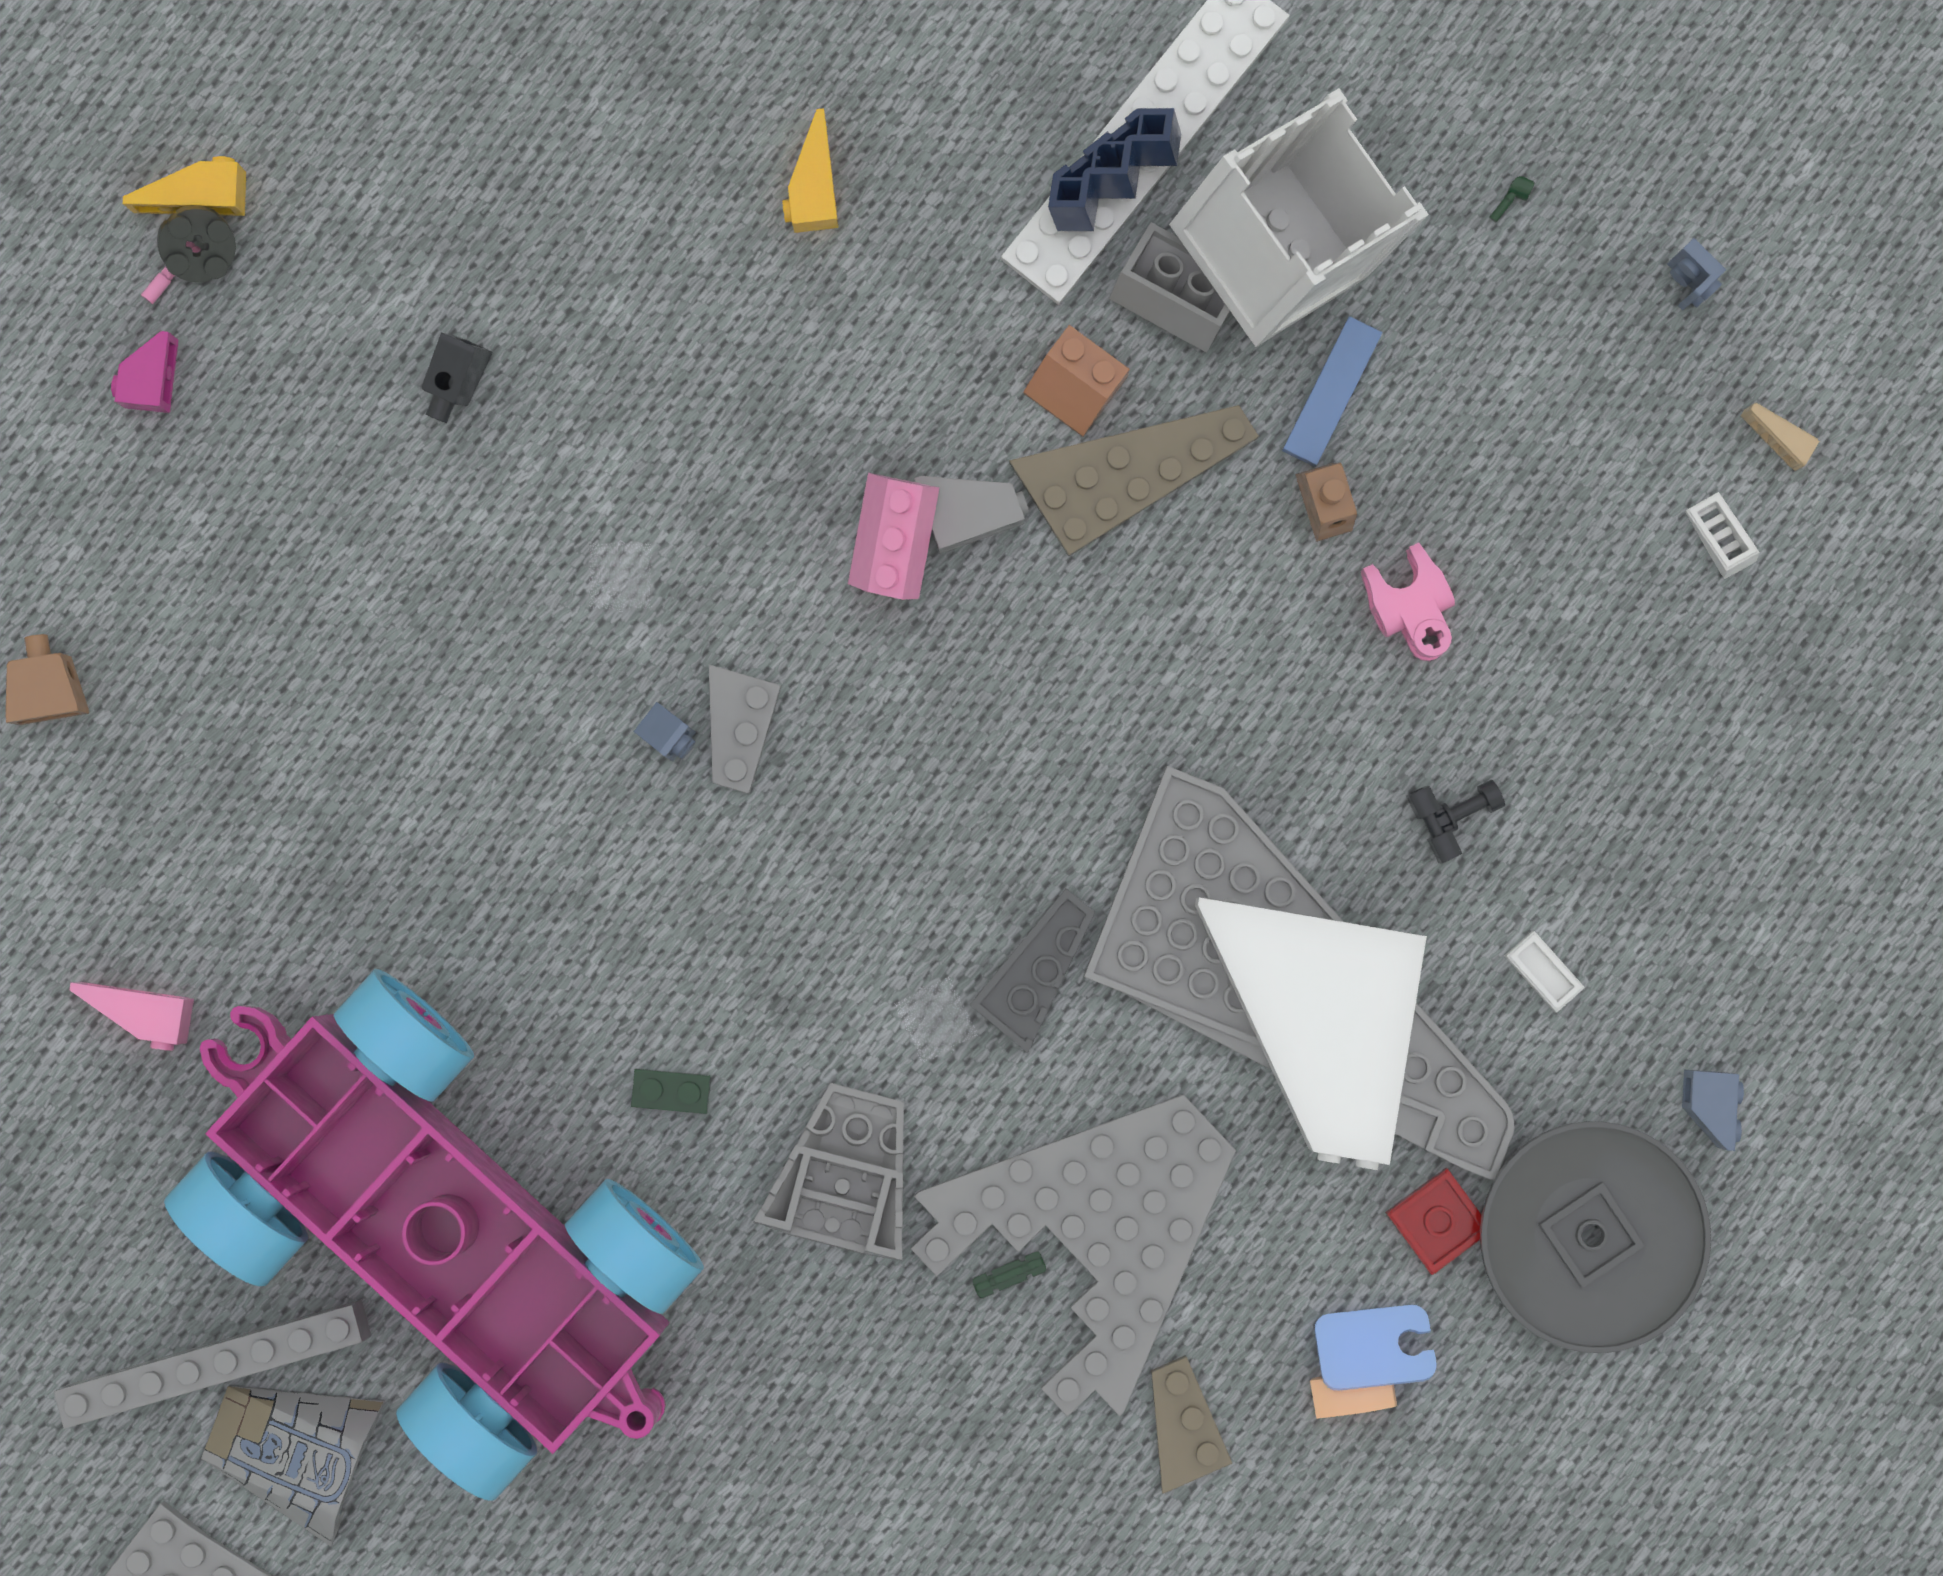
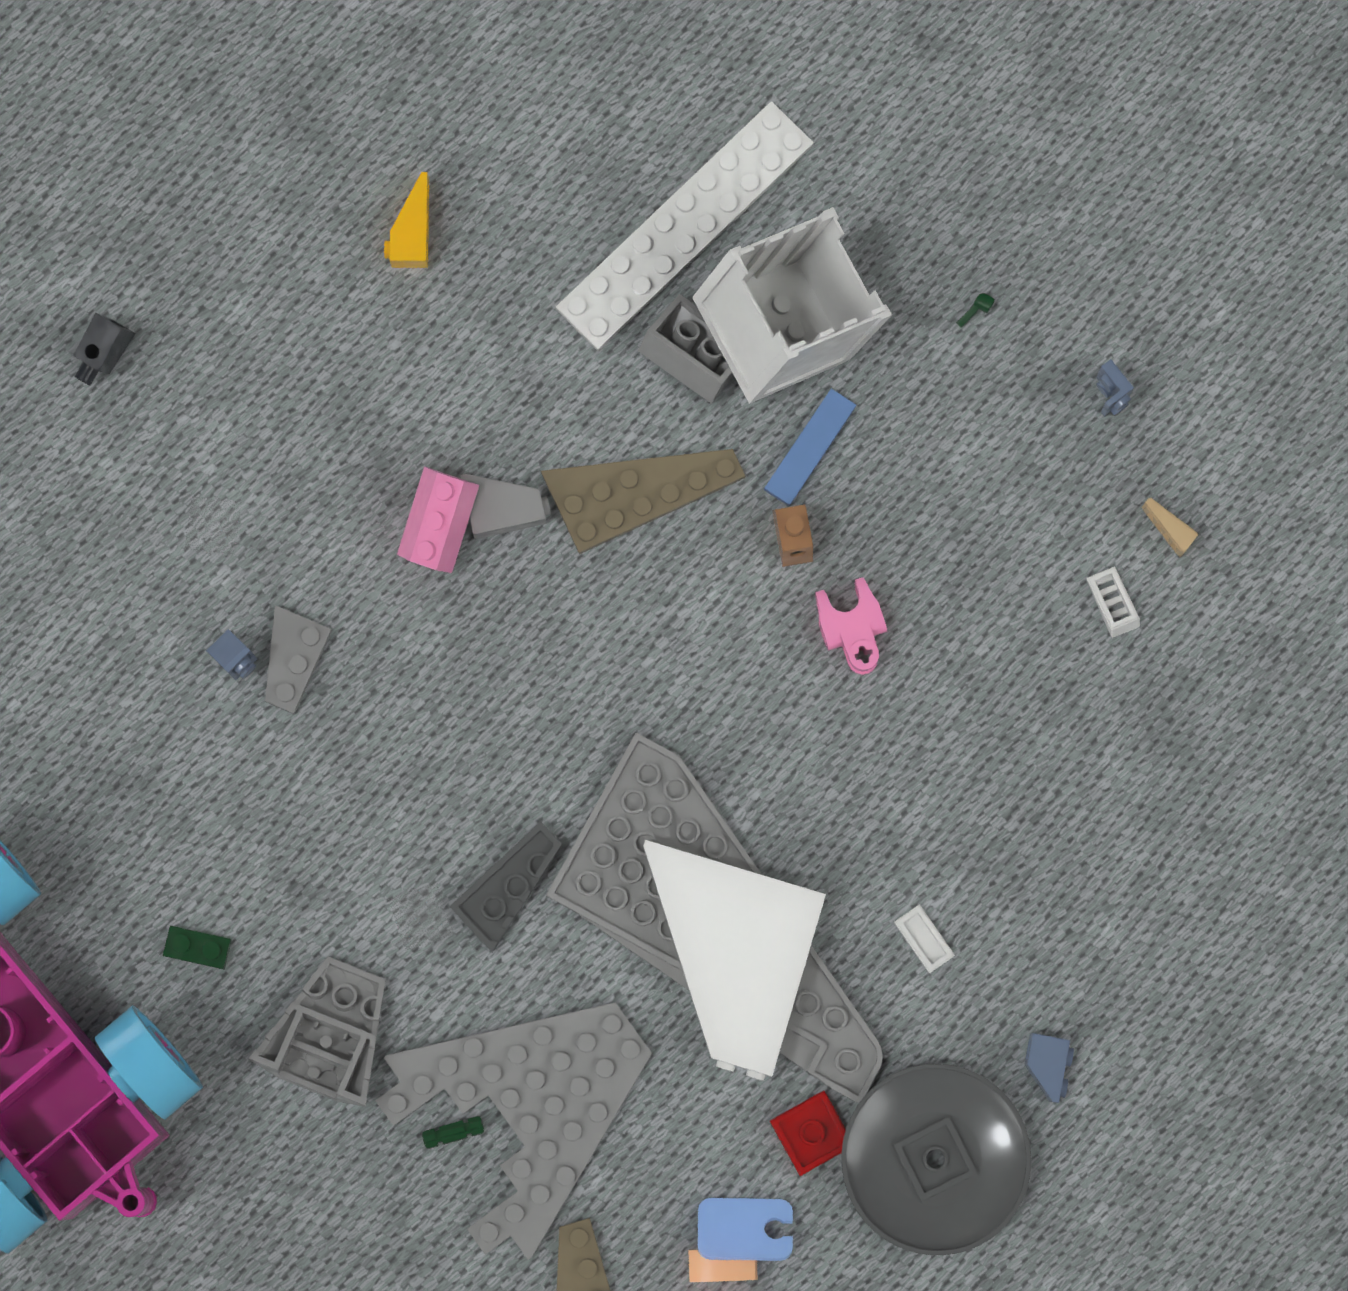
camera: 10 degrees right, 5 degrees down
(1076, 380) = (603, 413): nougat slope -> none
(1113, 167) = (652, 246): dark blue brick -> none
(1443, 820) = (855, 805): black bar -> none

